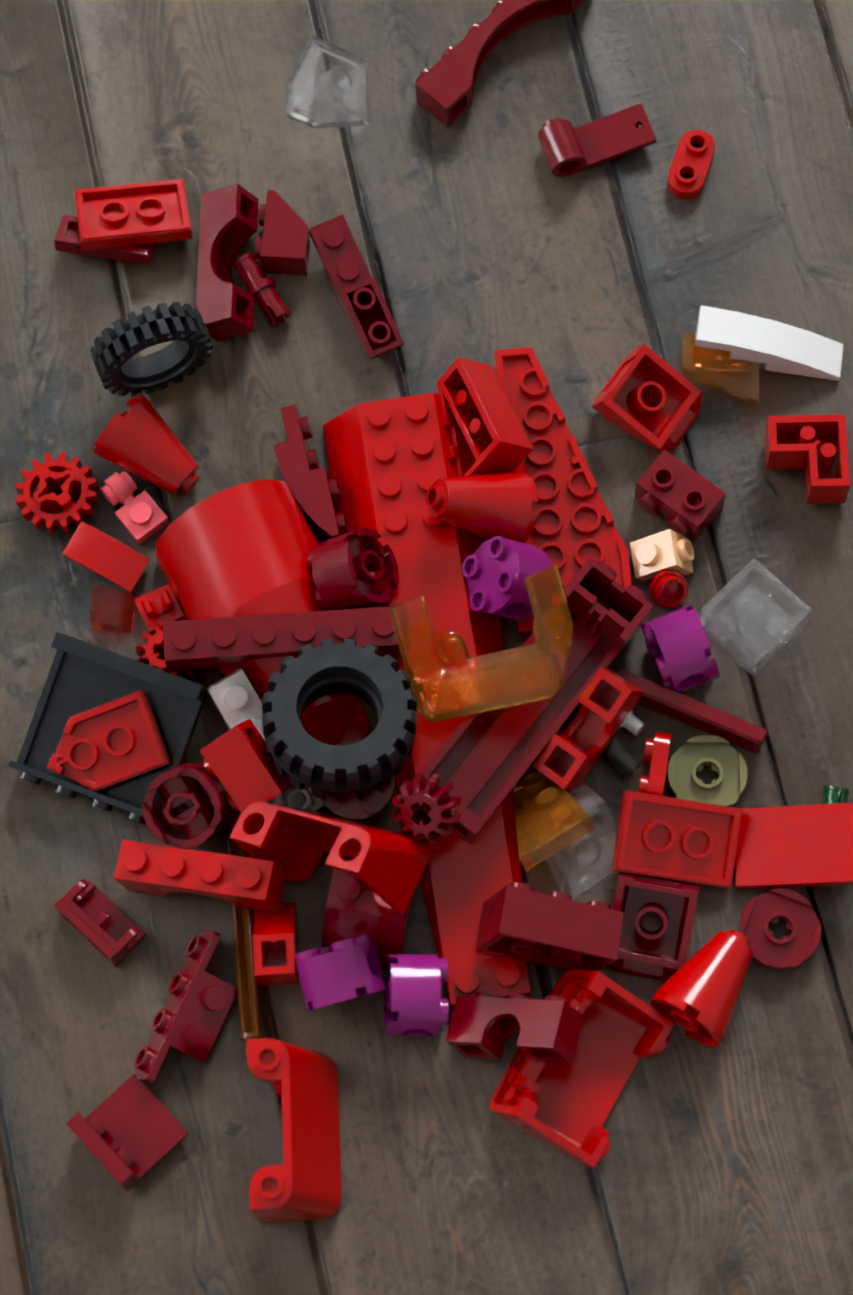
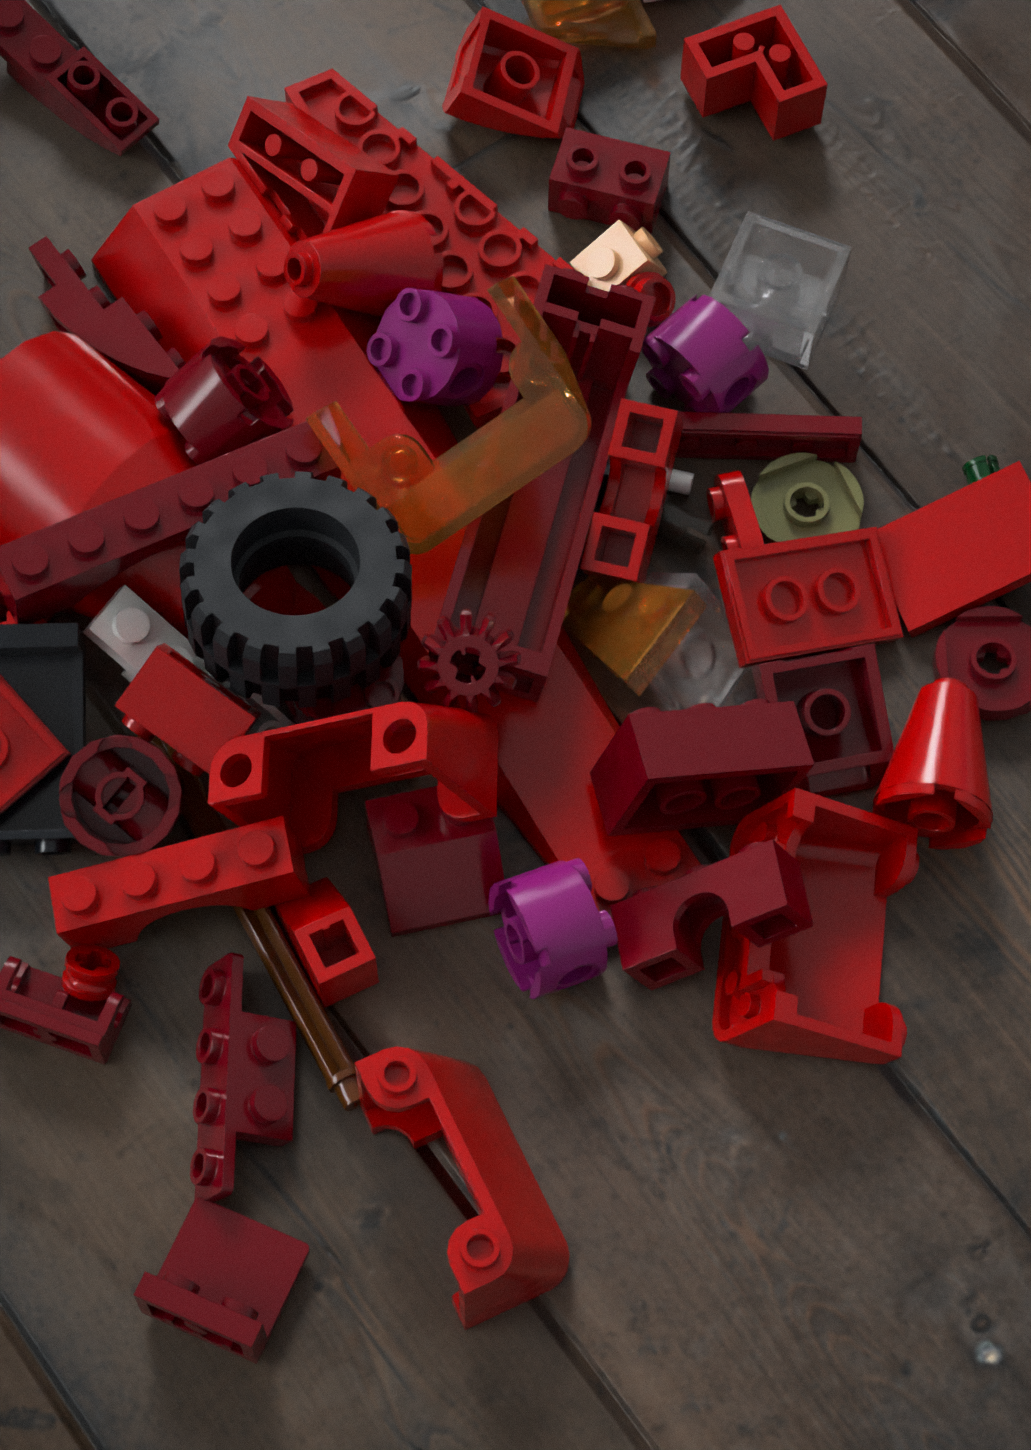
camera: 30 degrees left, 5 degrees down
(127, 917) = (90, 972): none -> red bush
(339, 972) = (437, 937): magenta brick -> none

